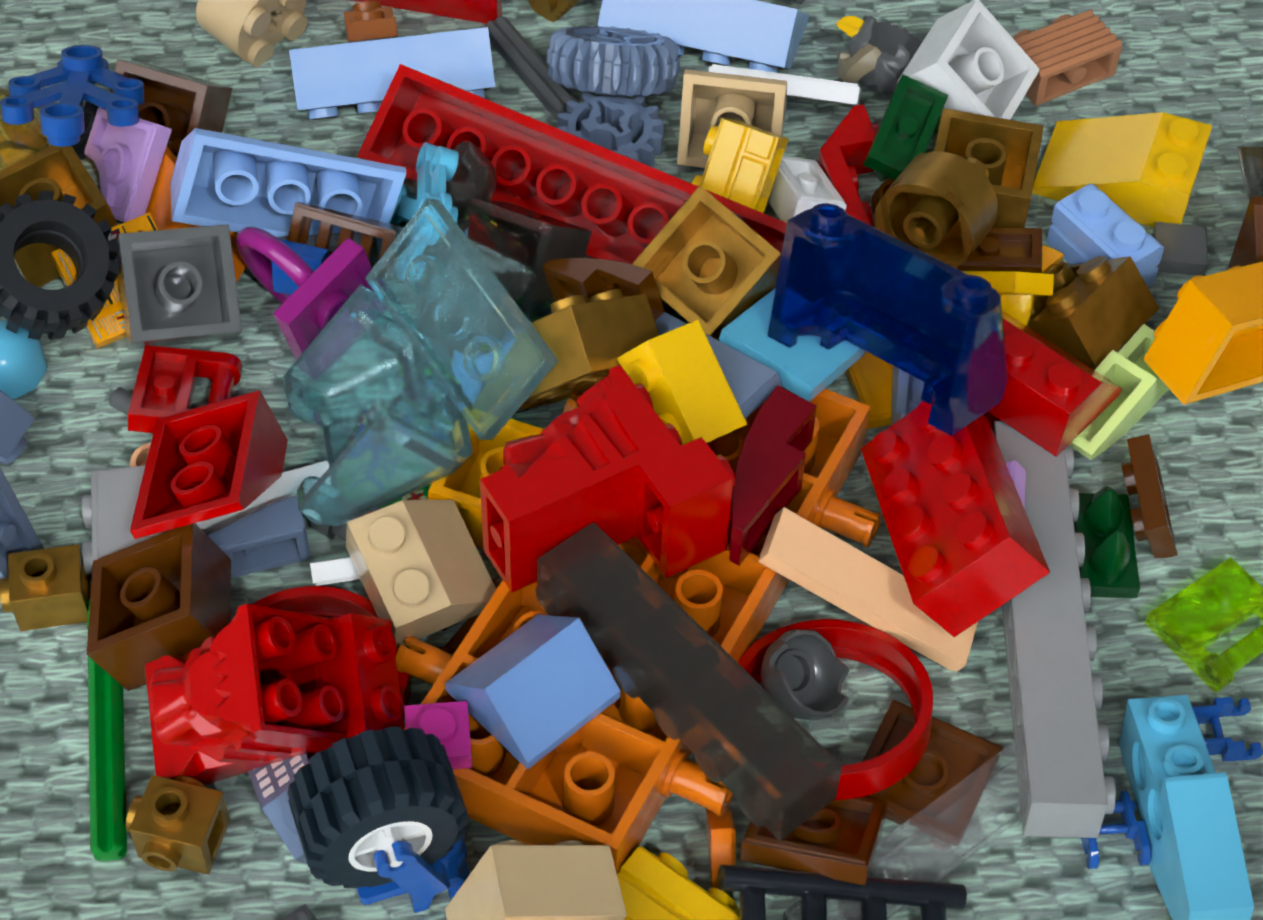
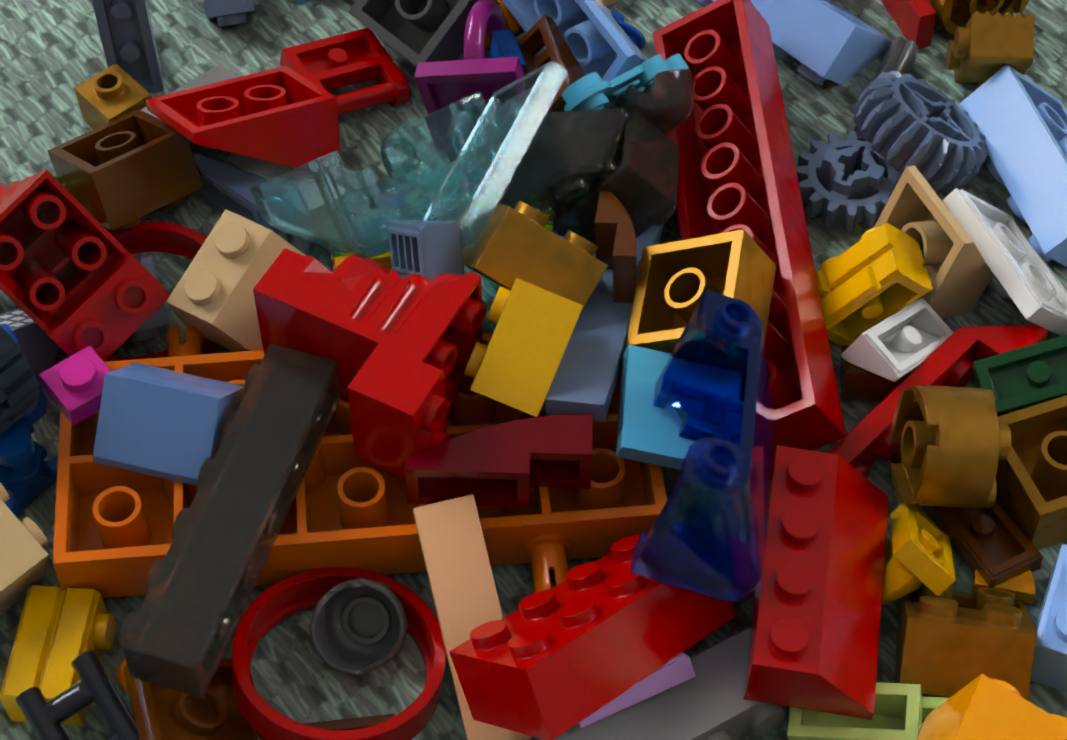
camera: 60 degrees right, 0 degrees up
(534, 375) = (425, 247): none -> sand blue slope

